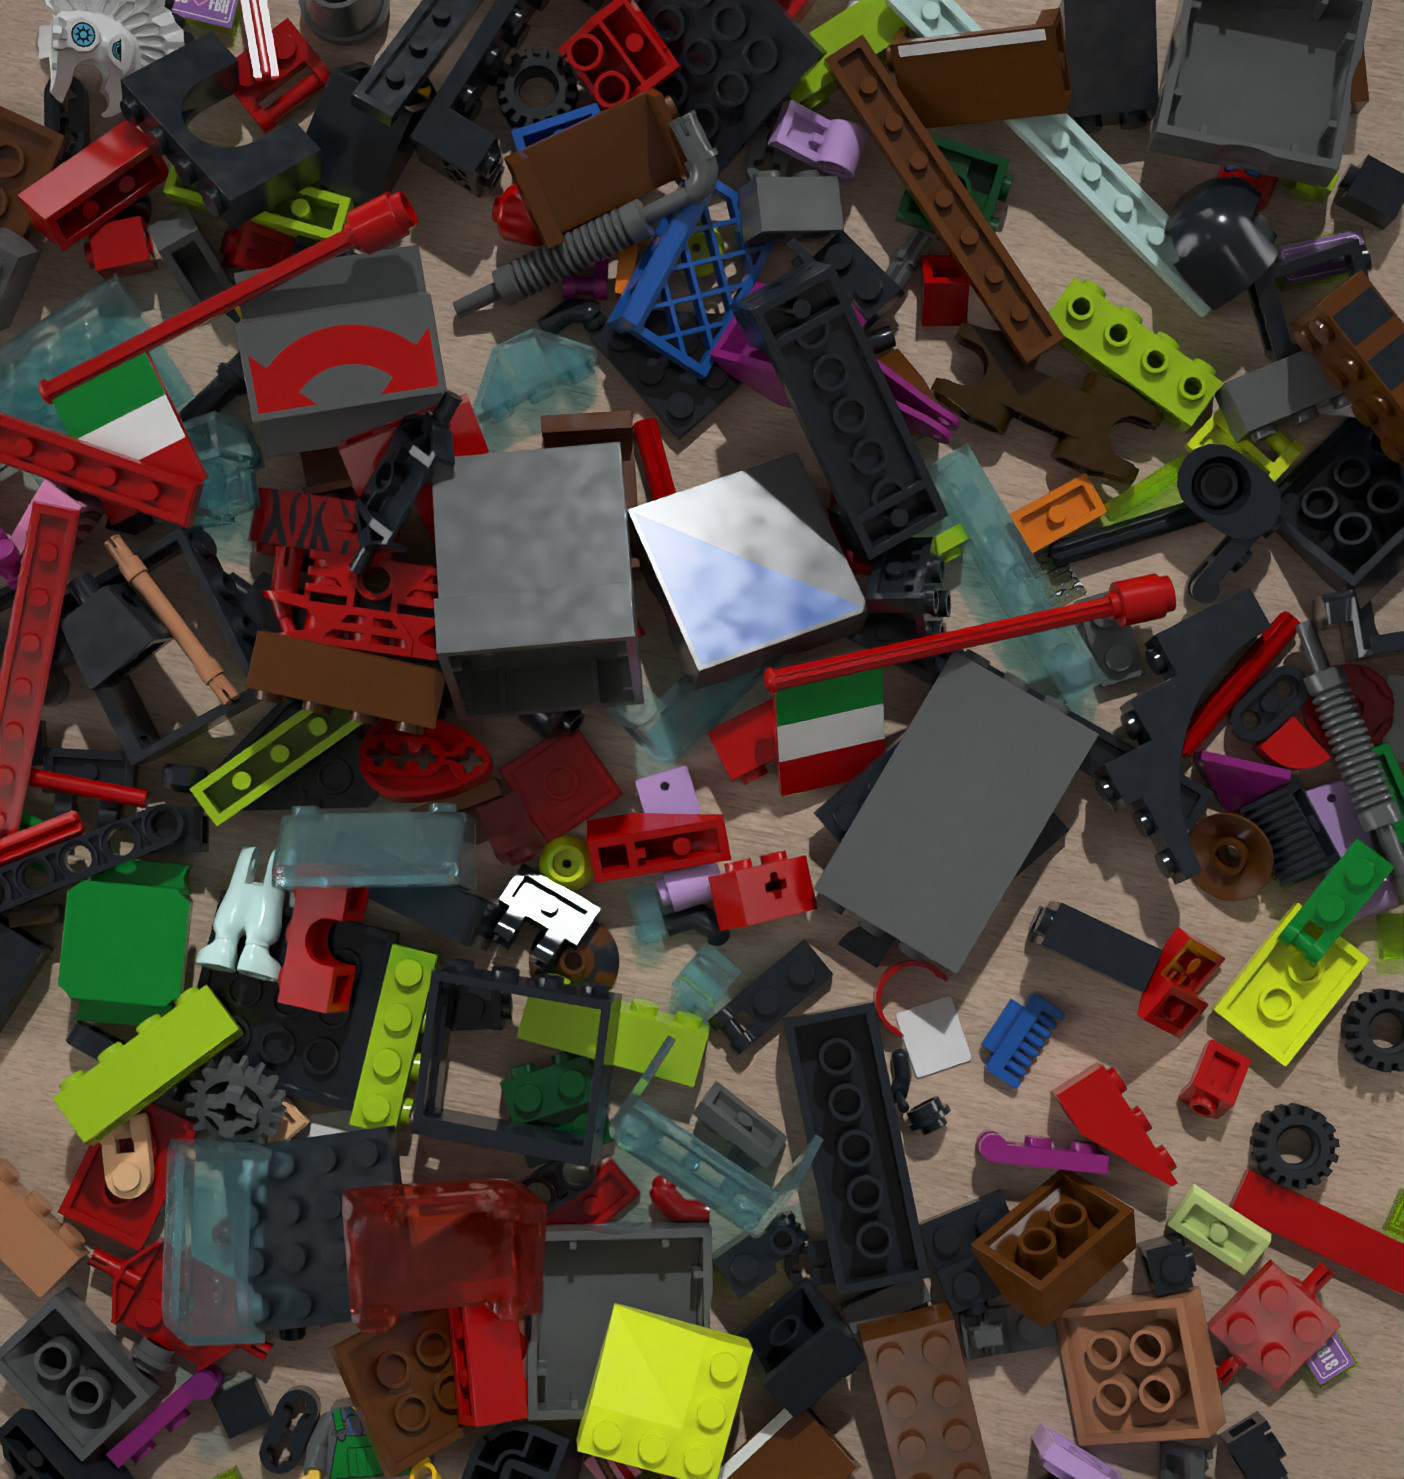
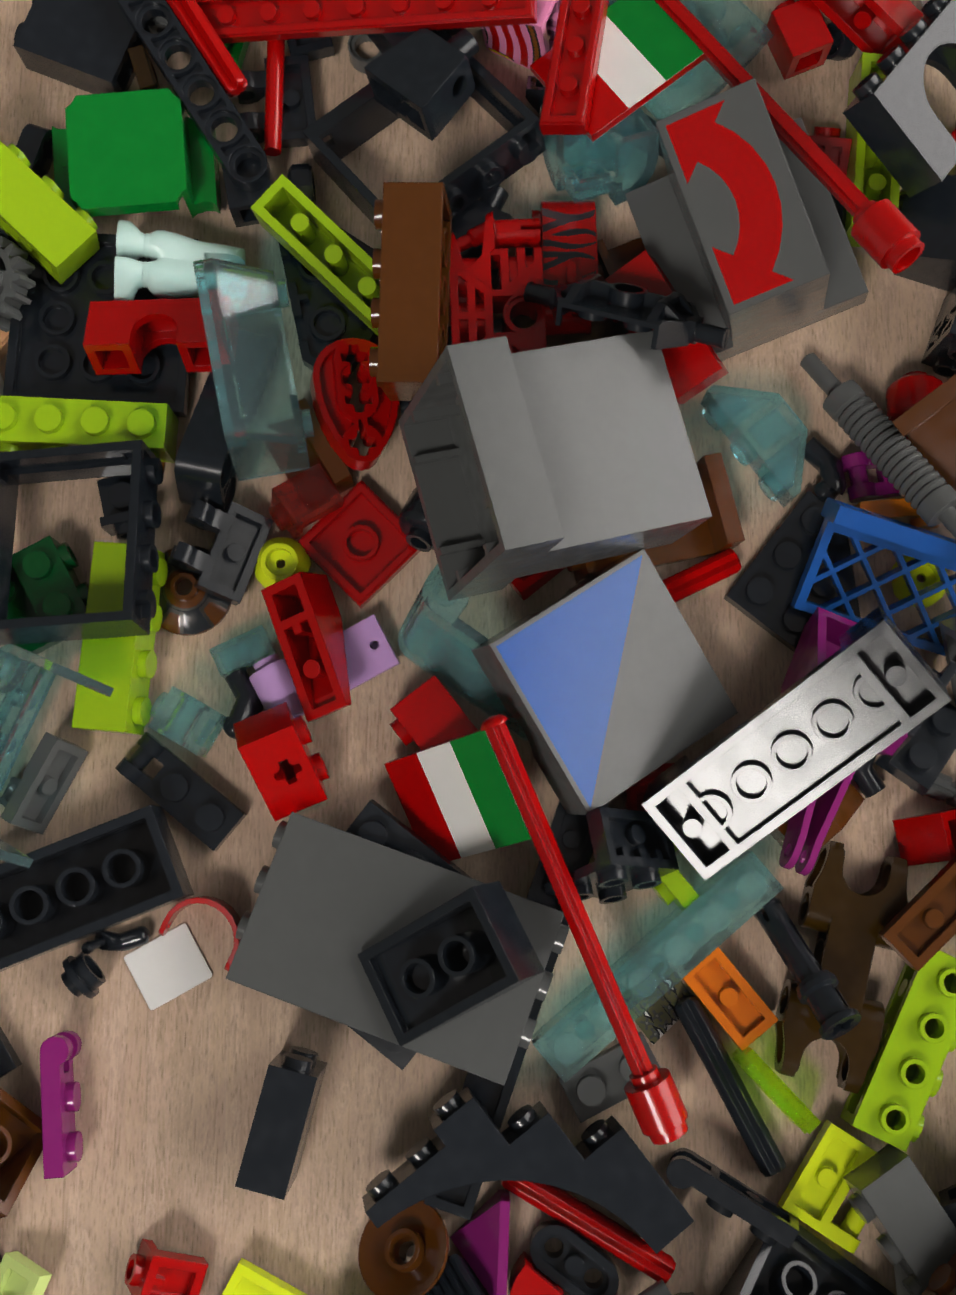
camera: 75 degrees right, 5 degrees down
(136, 574) = (485, 90): nougat piece -> none
(189, 256) = (811, 90): dark grey slope -> none
(867, 945) = (245, 877): black tile -> none
(980, 762) = (450, 961): none -> black slope
(1011, 1029) = (182, 1045): blue piece -> none
(1060, 433) = (815, 986): none -> black pin
(1101, 1113) = (106, 1161): red slope -> none
(1171, 993) = (245, 1215): red slope -> none
(1229, 491) = (791, 1181): black piece -> none

